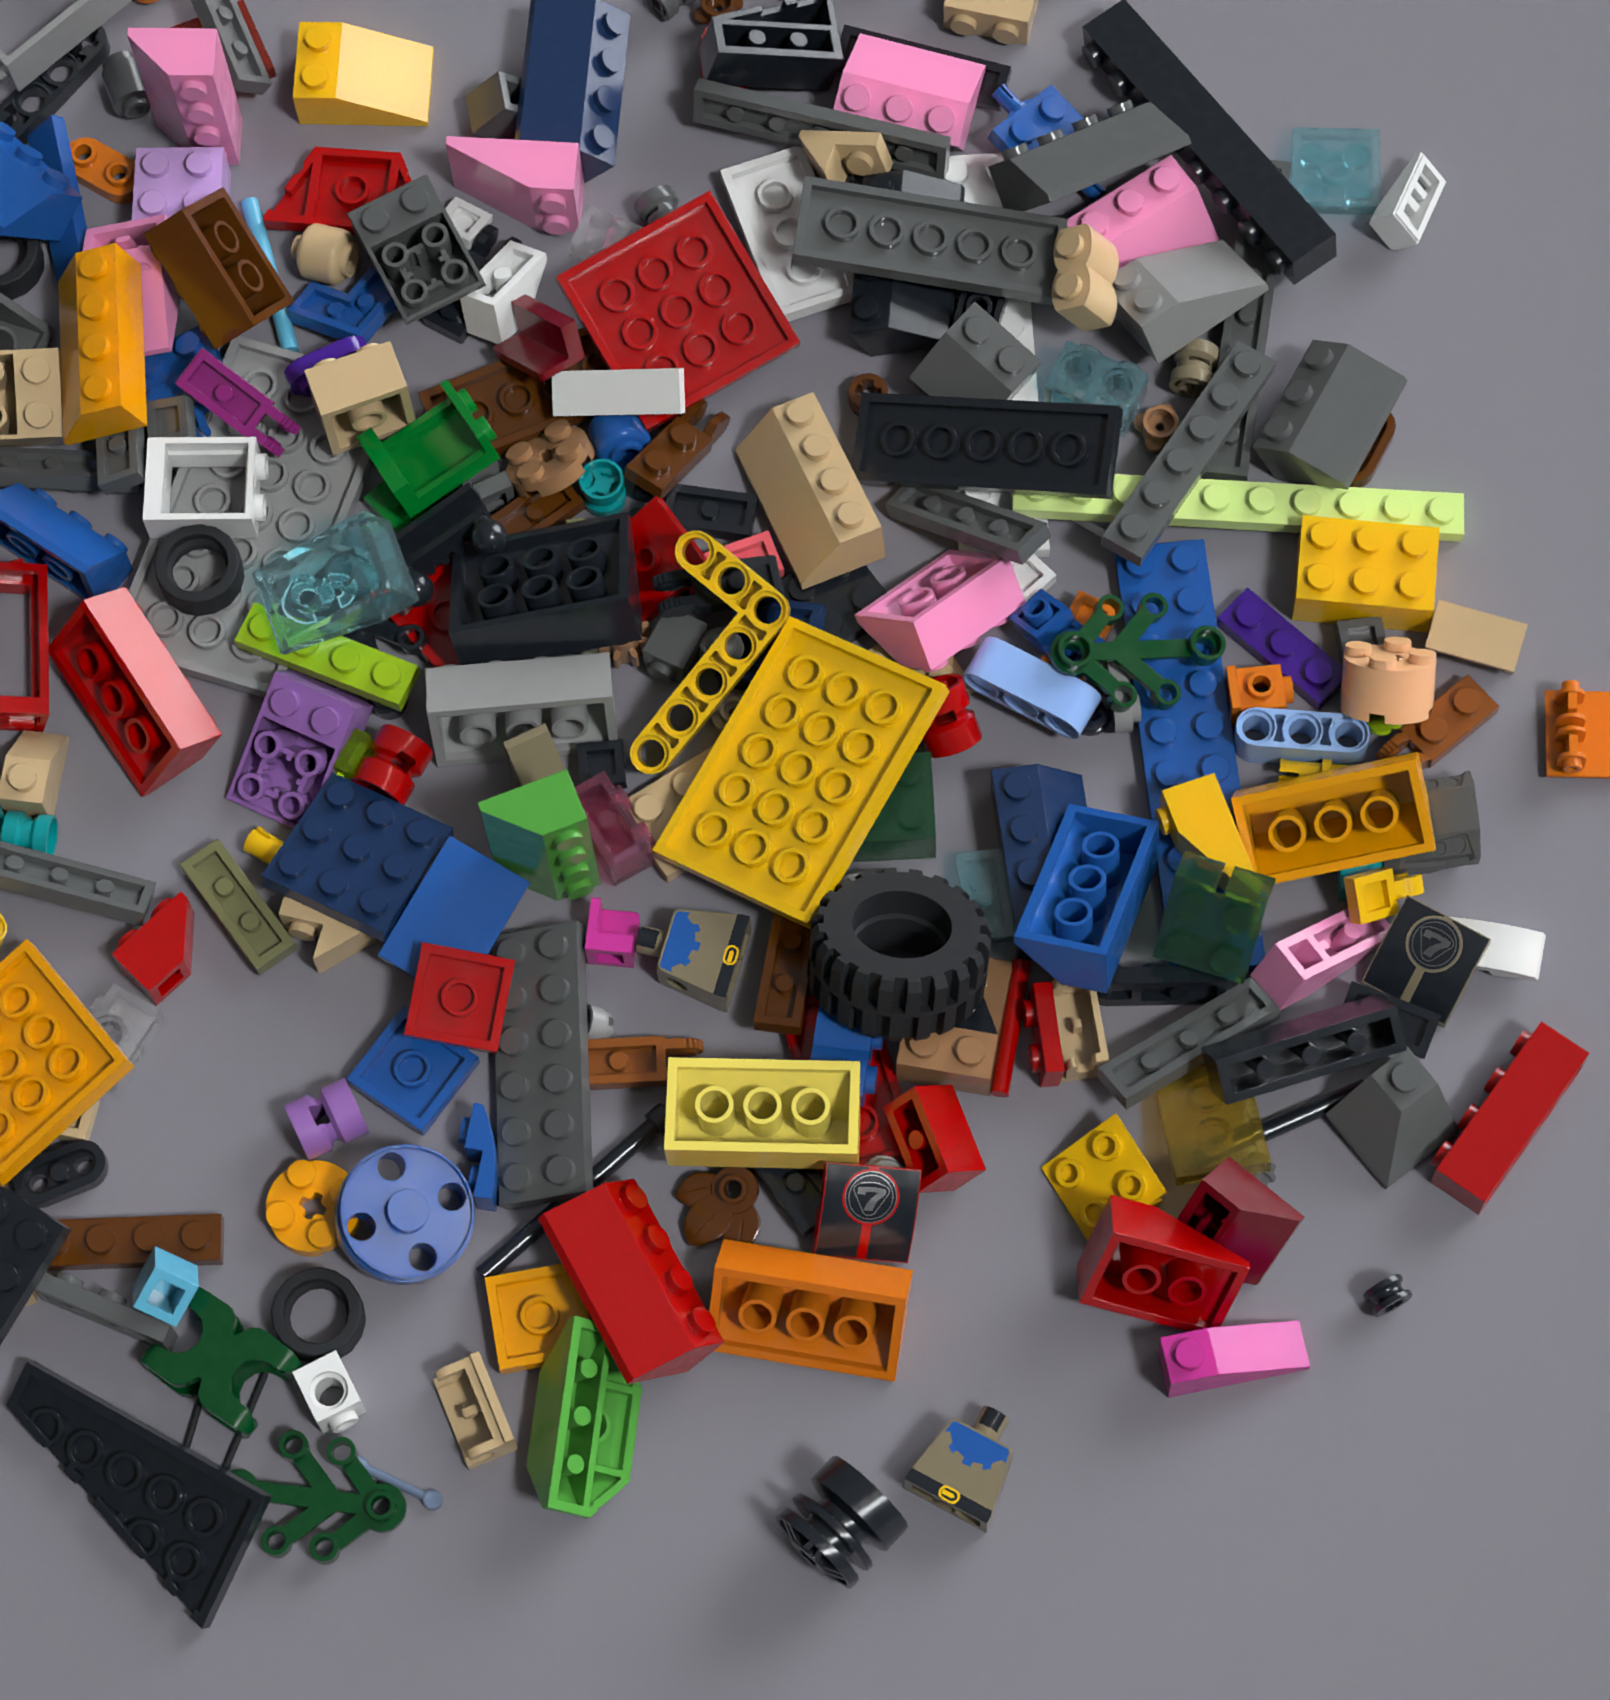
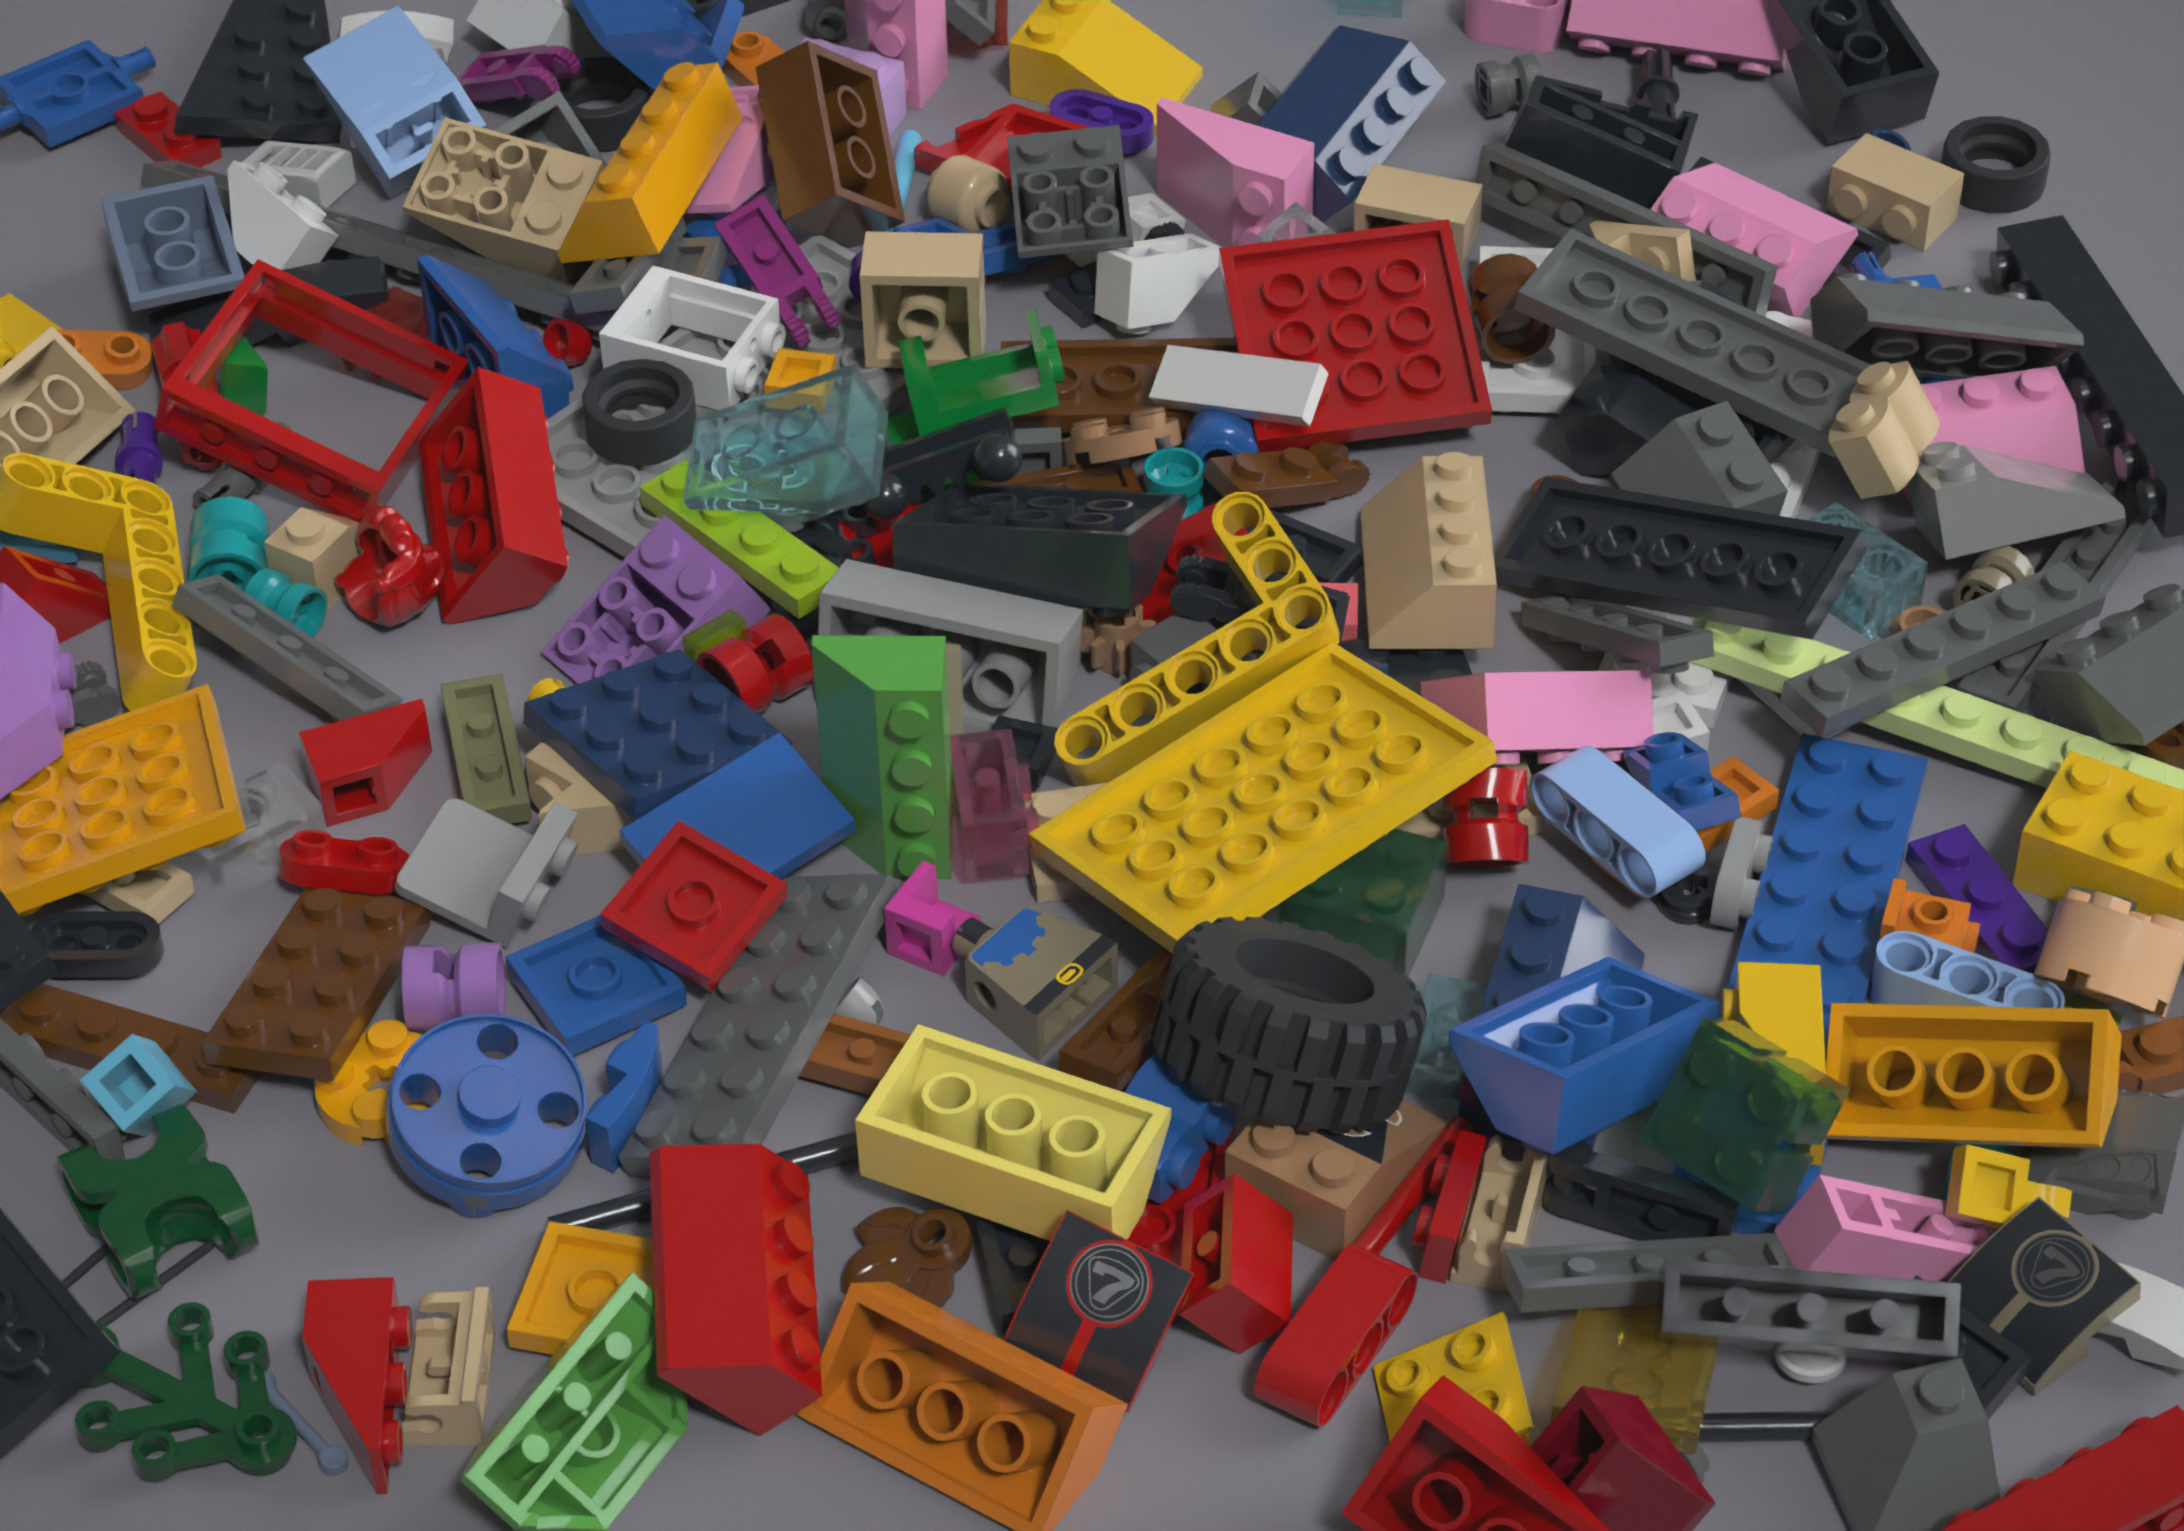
camera: 20 degrees right, 25 degrees down
(92, 779) = (394, 572): none -> red hair
(100, 509) = (567, 341): none -> red hinge
(193, 1042) = (345, 865): none -> red plate
(233, 1150) = (316, 984): none -> reddish brown plate
(297, 1011) = (487, 869): none -> light grey bracket
(298, 494) = (797, 366): none -> light orange plate
(311, 1280) = (311, 1157): black tyre -> none
(319, 1376) = (271, 1278): white brick -> none
(388, 133) = (1102, 110): none -> dark purple plate
(411, 1430) = (353, 1361): none -> red slope
(545, 340) = (1183, 315): dark red panel -> none
(664, 156) = (1409, 197): none -> tan brick
(770, 236) = (1492, 295): none -> reddish brown wheel
(1013, 1160) = (1335, 1335): none -> red beam
(1130, 653) = (1699, 789): dark green plant -> none

